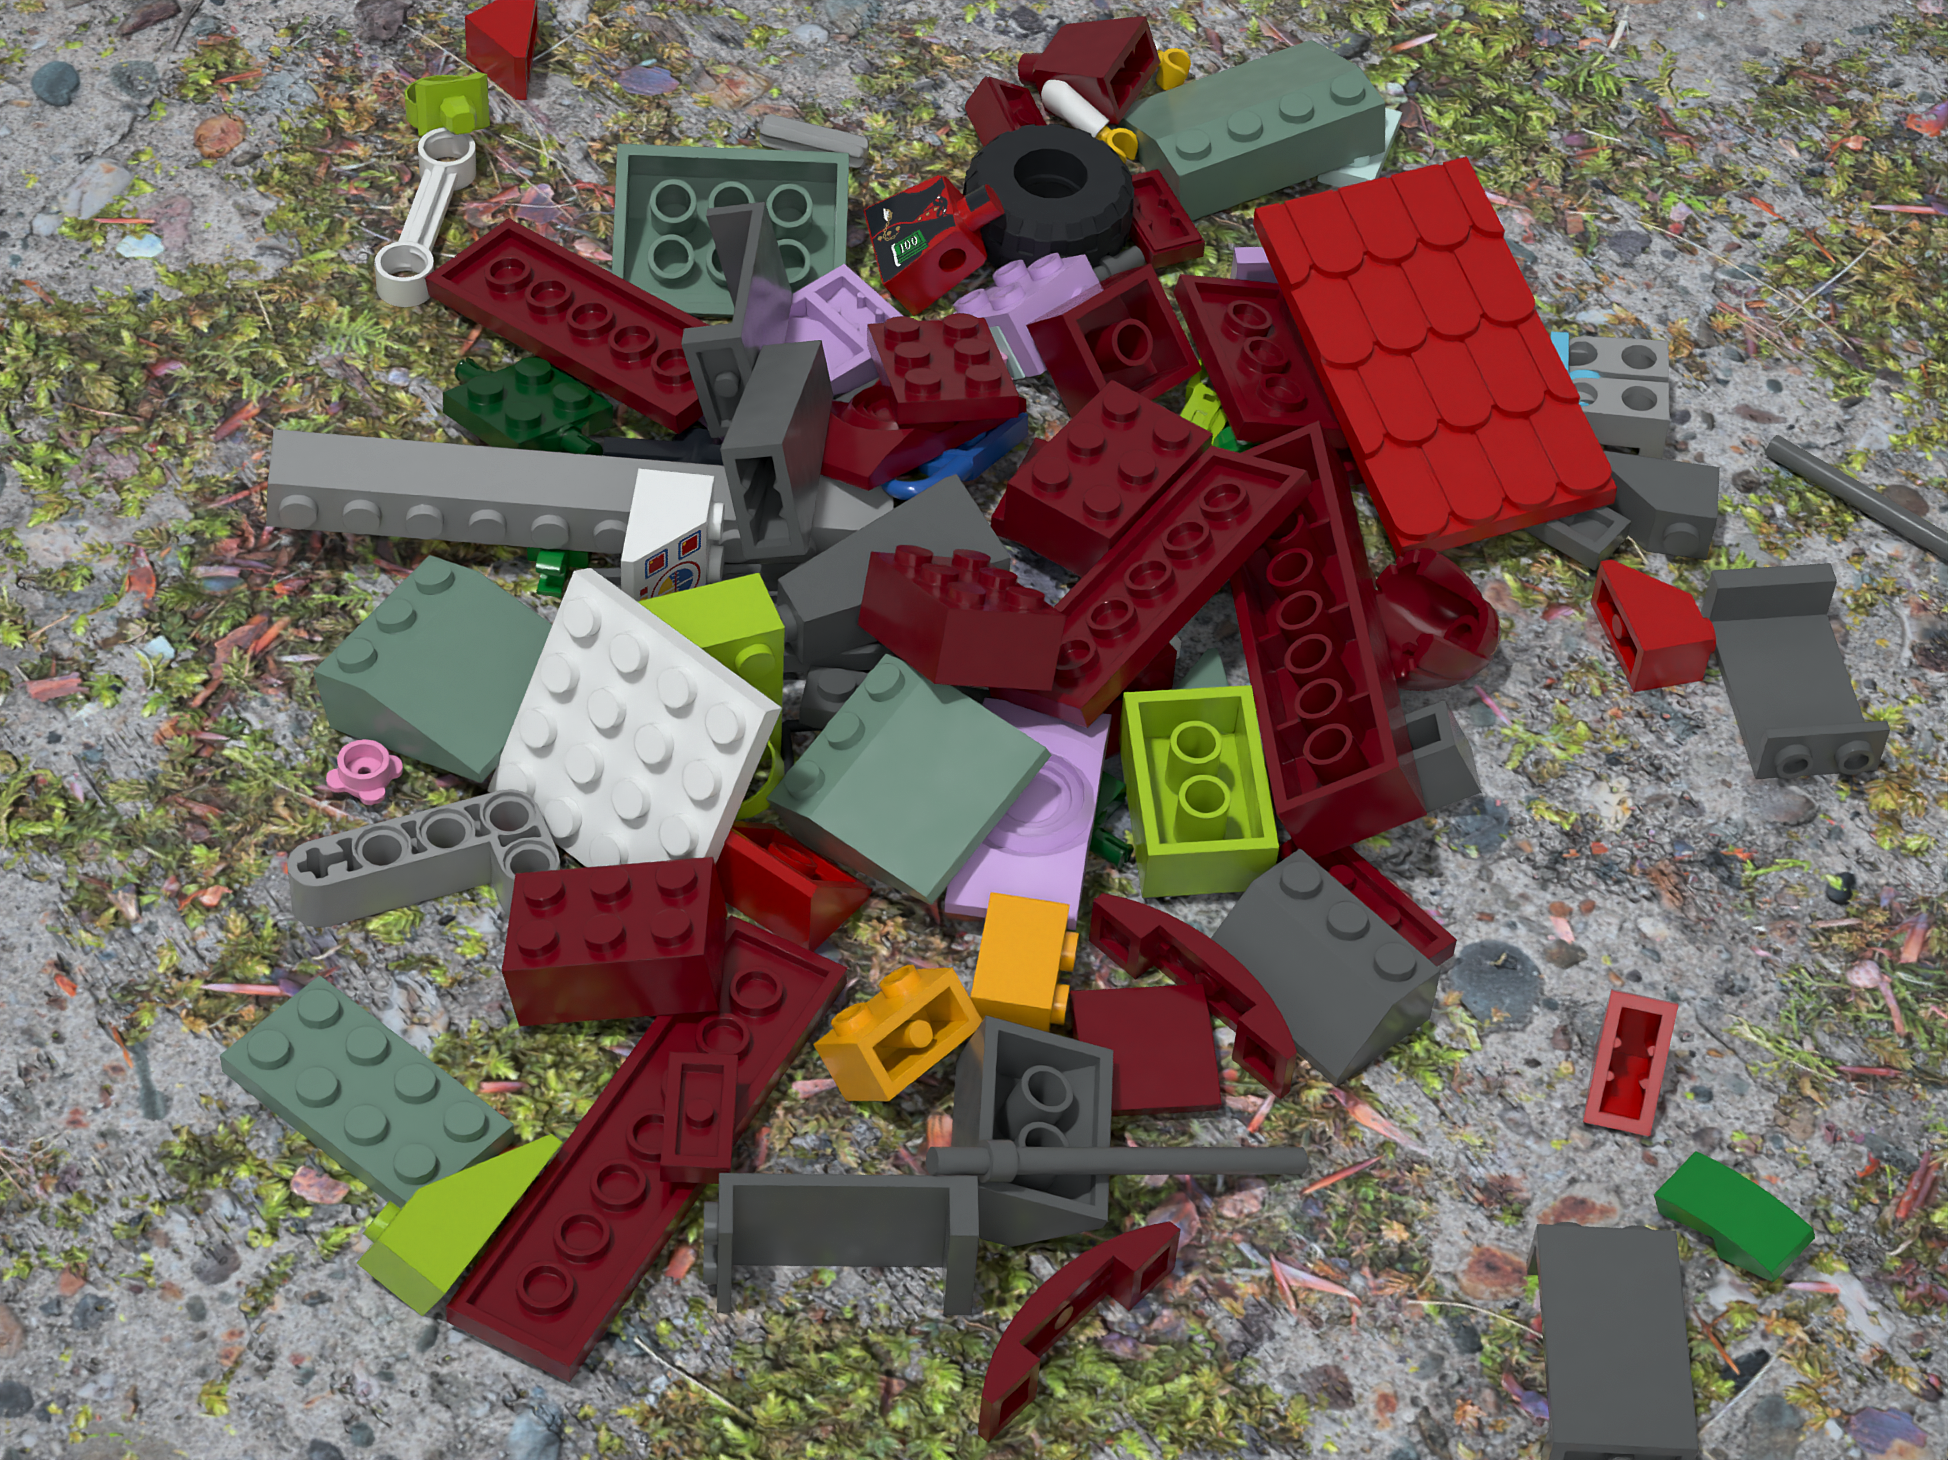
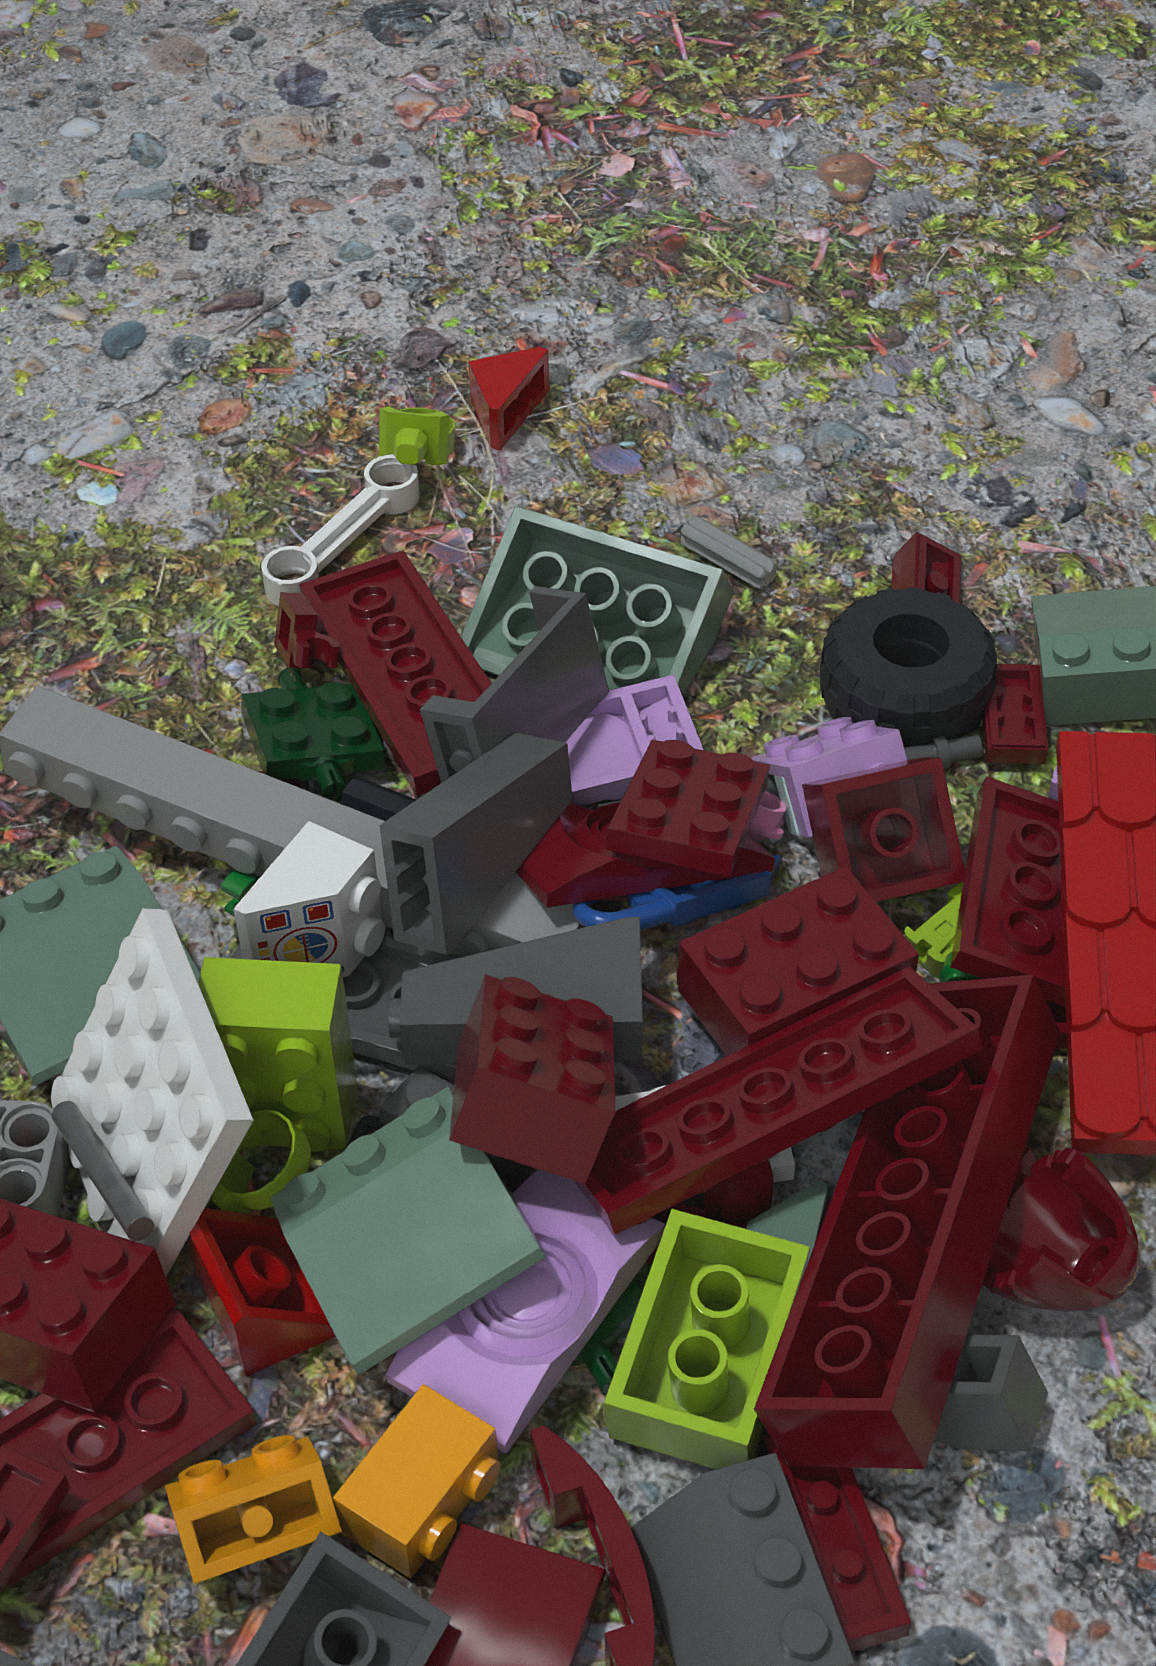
camera: 30 degrees right, 0 degrees up
(460, 327) = (301, 635): none -> dark red plate
(616, 817) = (102, 1171): none -> flat silver bar
(929, 238) = (767, 674): torso -> none
(1098, 71) = (1026, 555): dark red torso -> none

